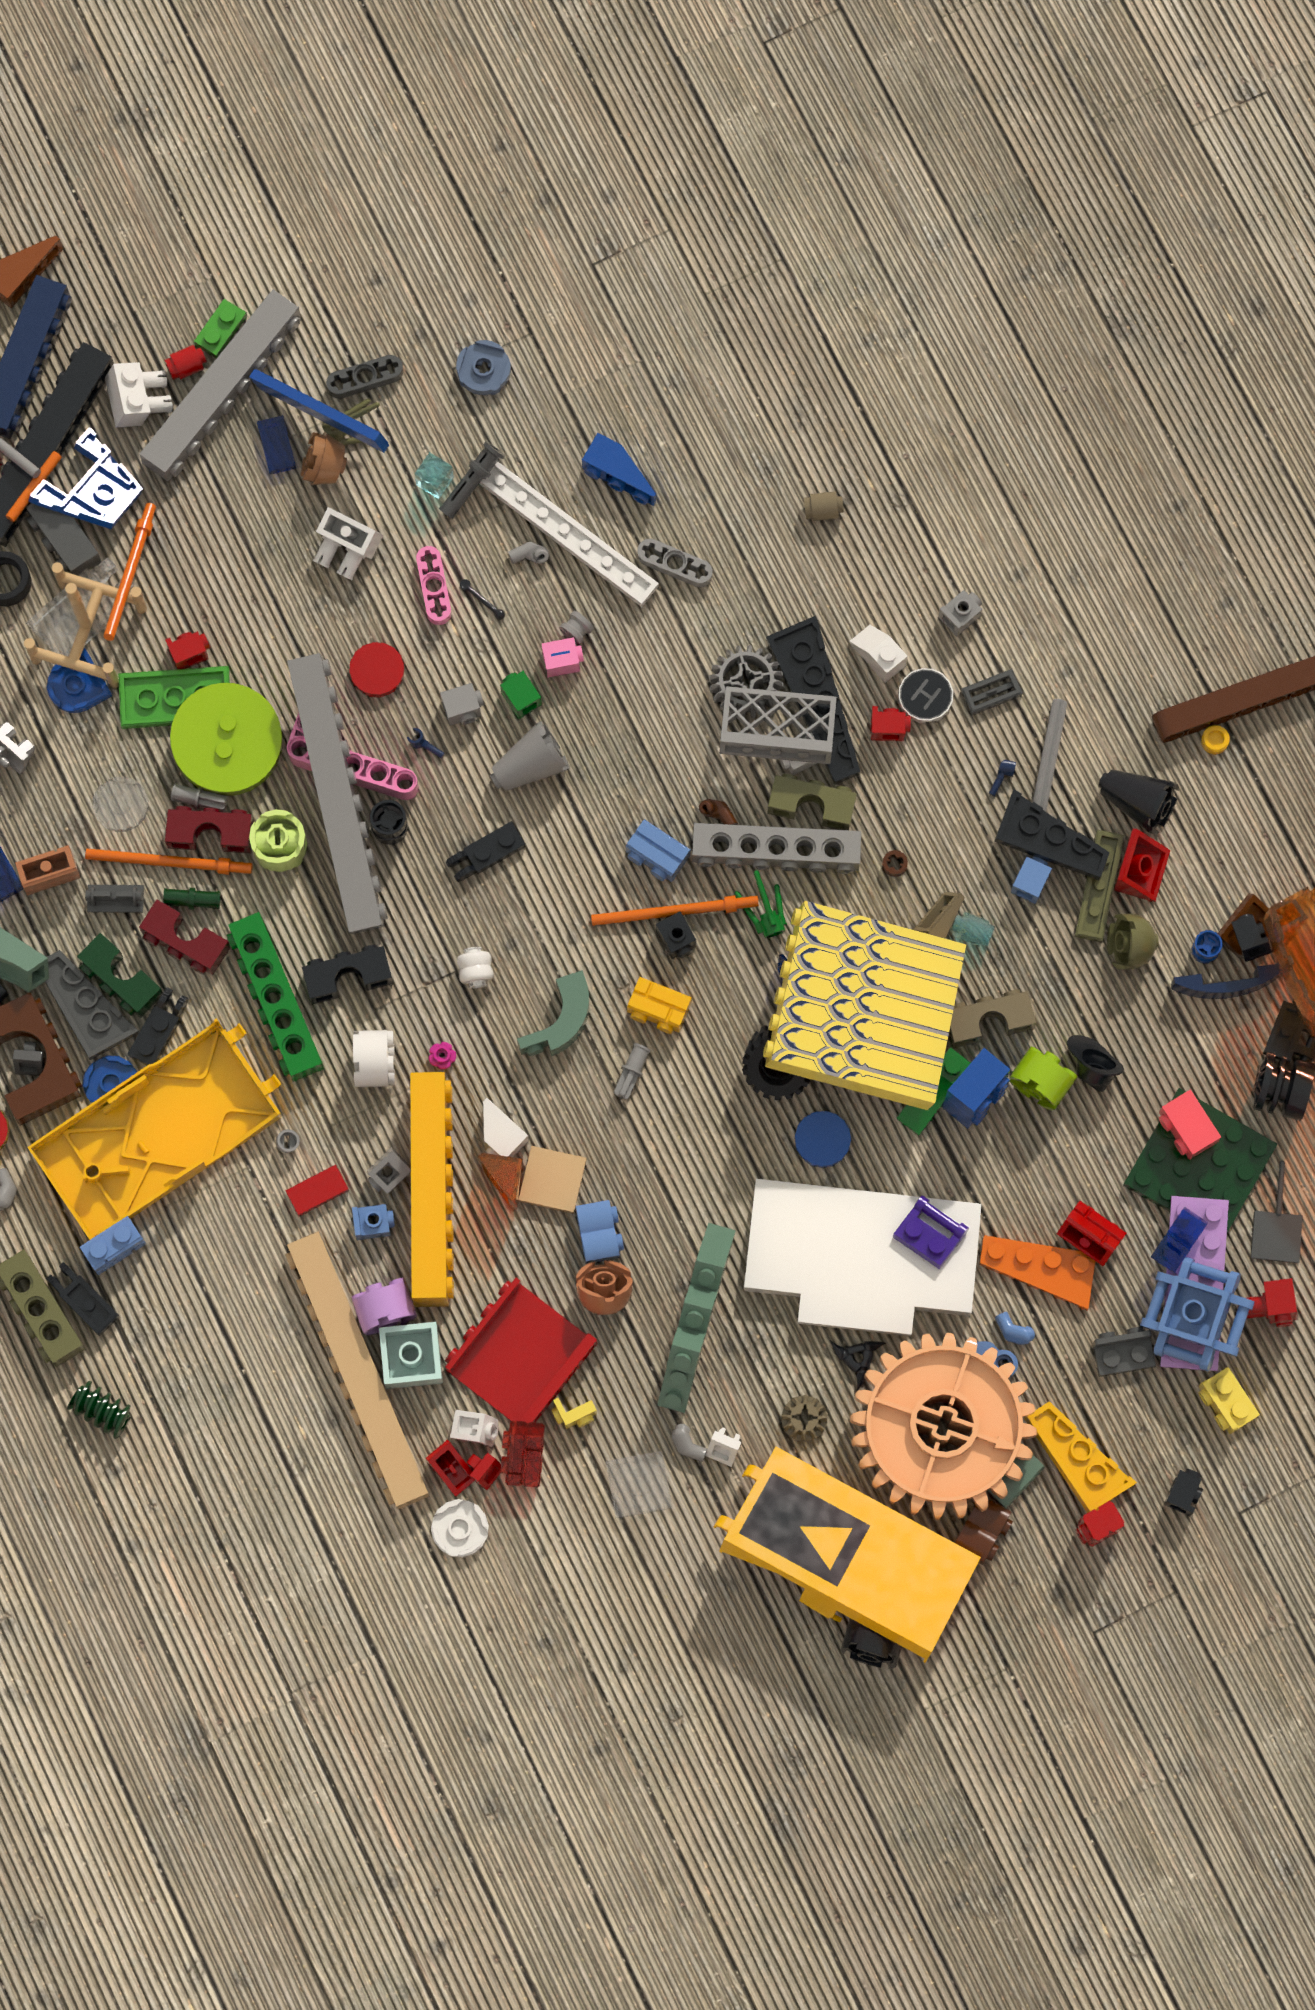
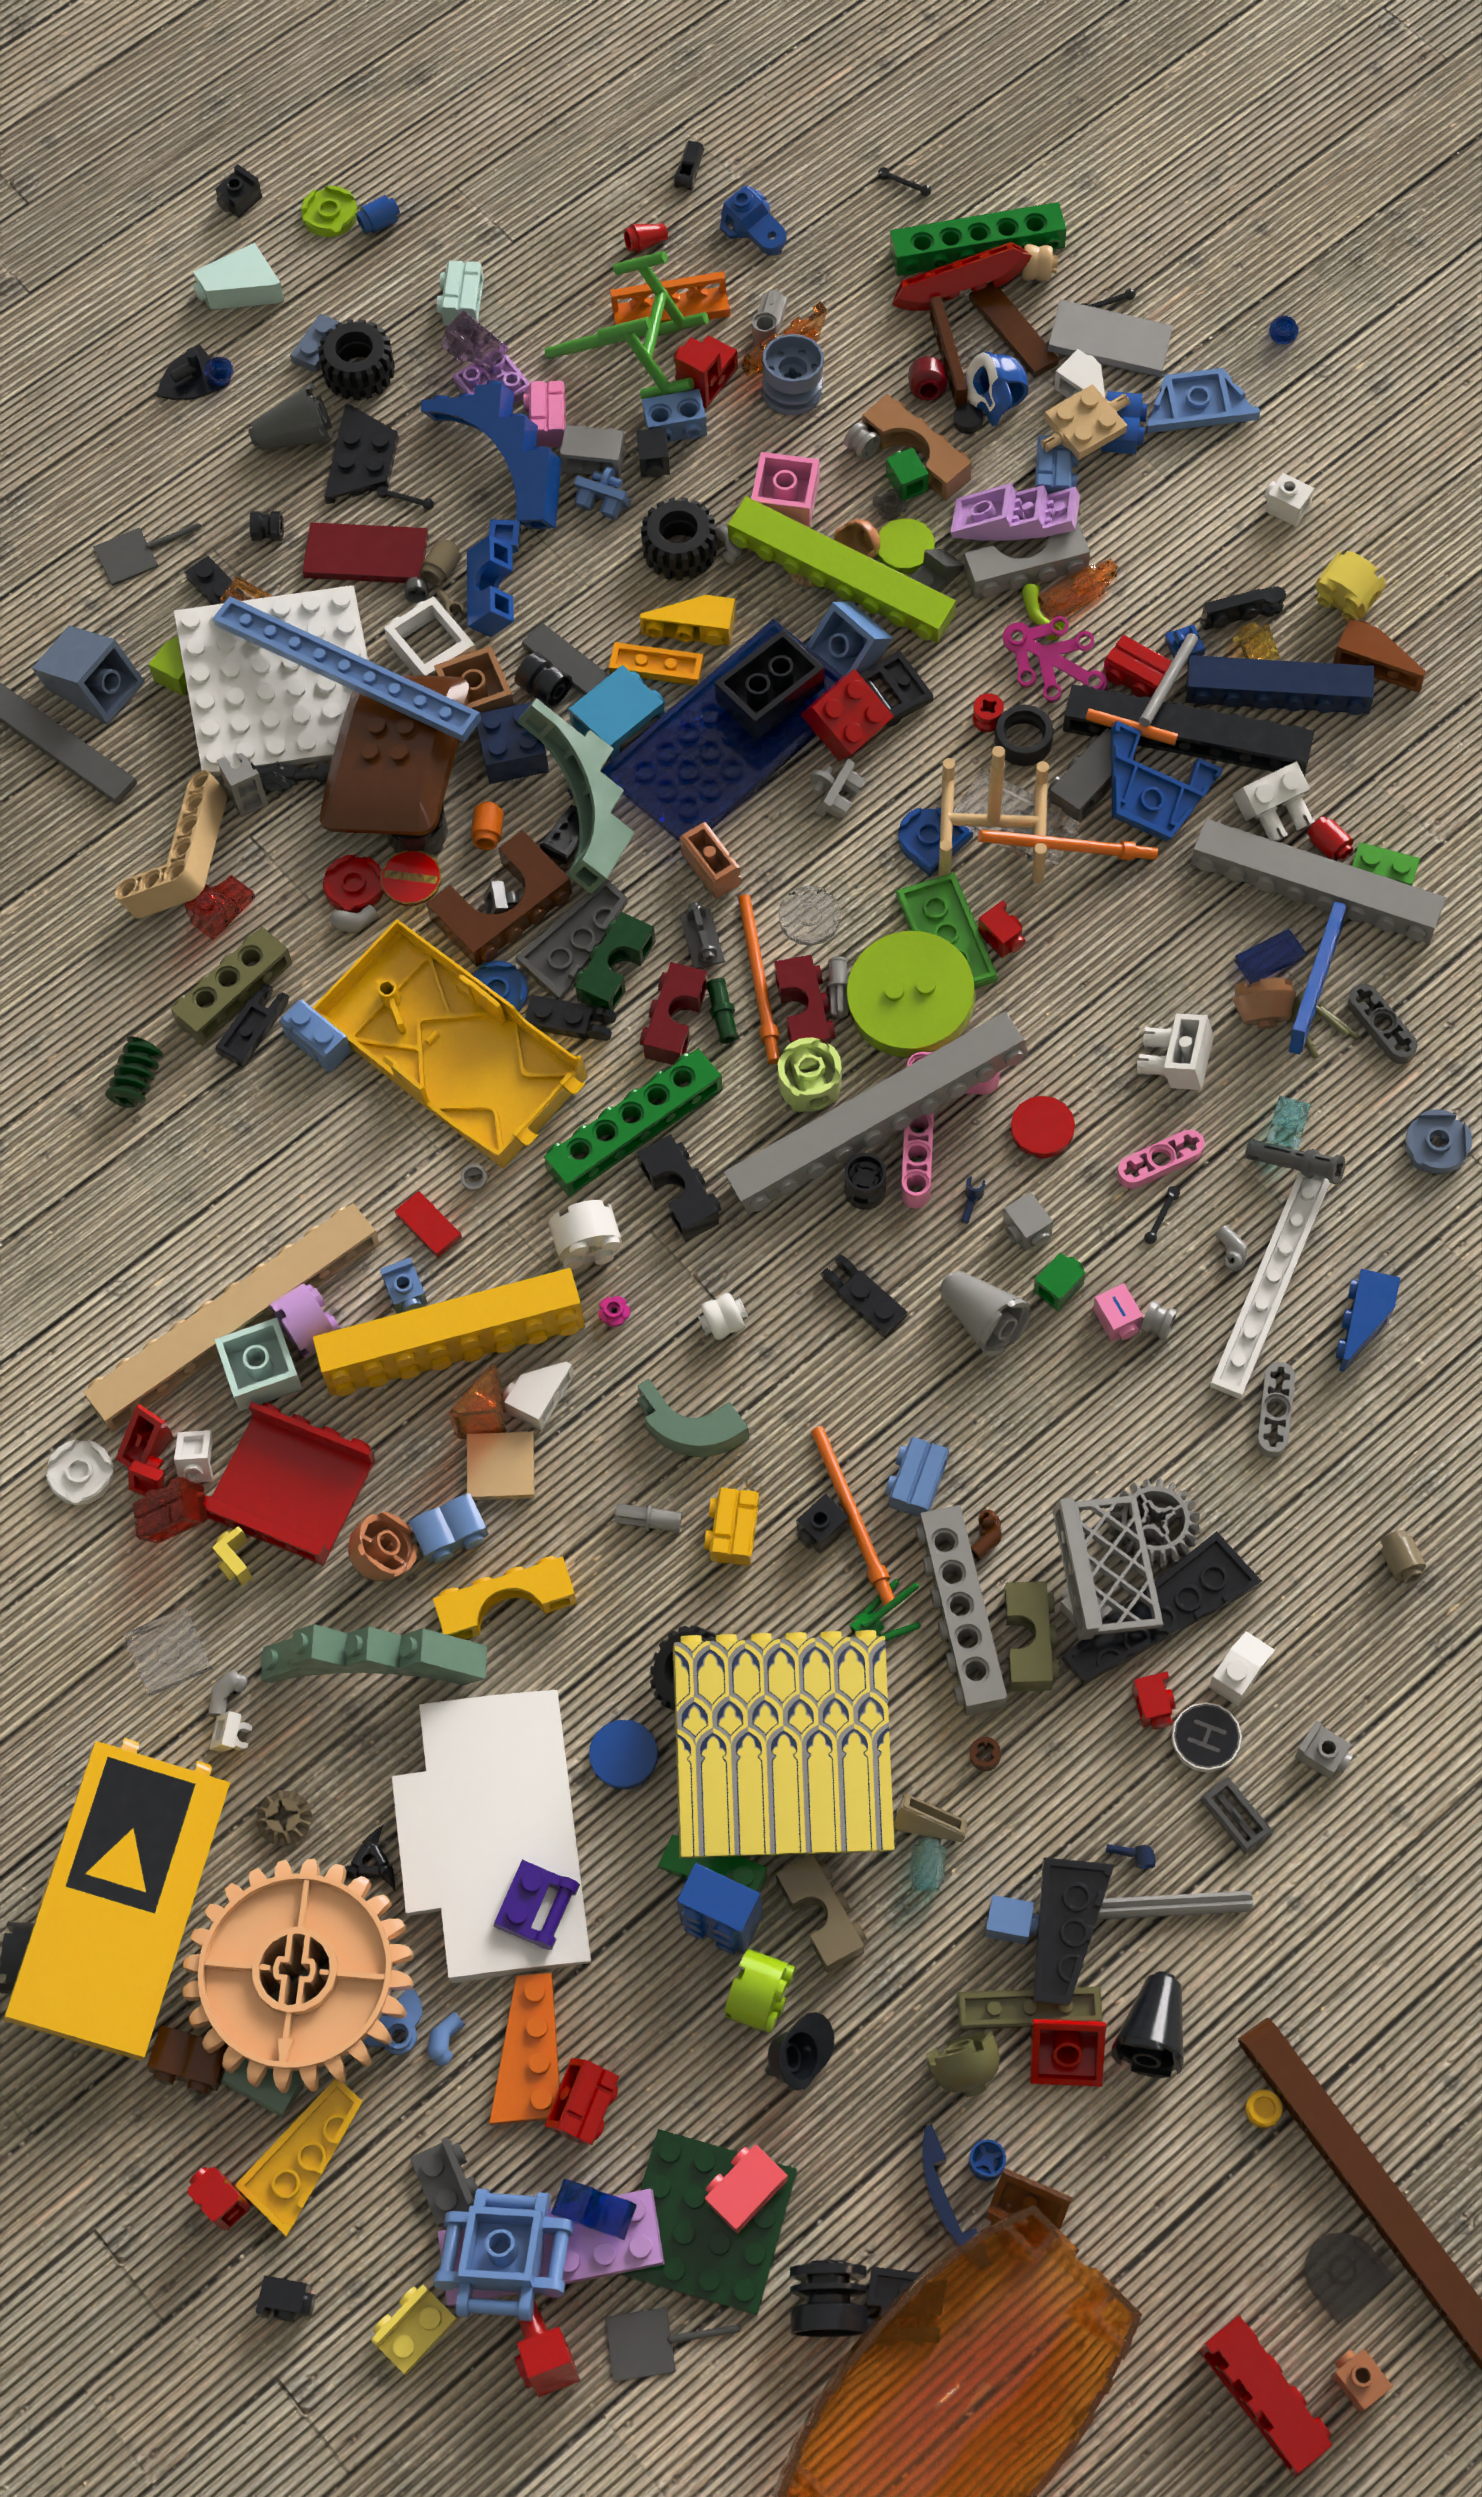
camera: 80 degrees right, 10 degrees down
(399, 1167) = (457, 1278): light grey brick -> none
(673, 1235) = (542, 1584): none -> yellow arch
(1251, 937) = (1006, 2200): black brick -> none

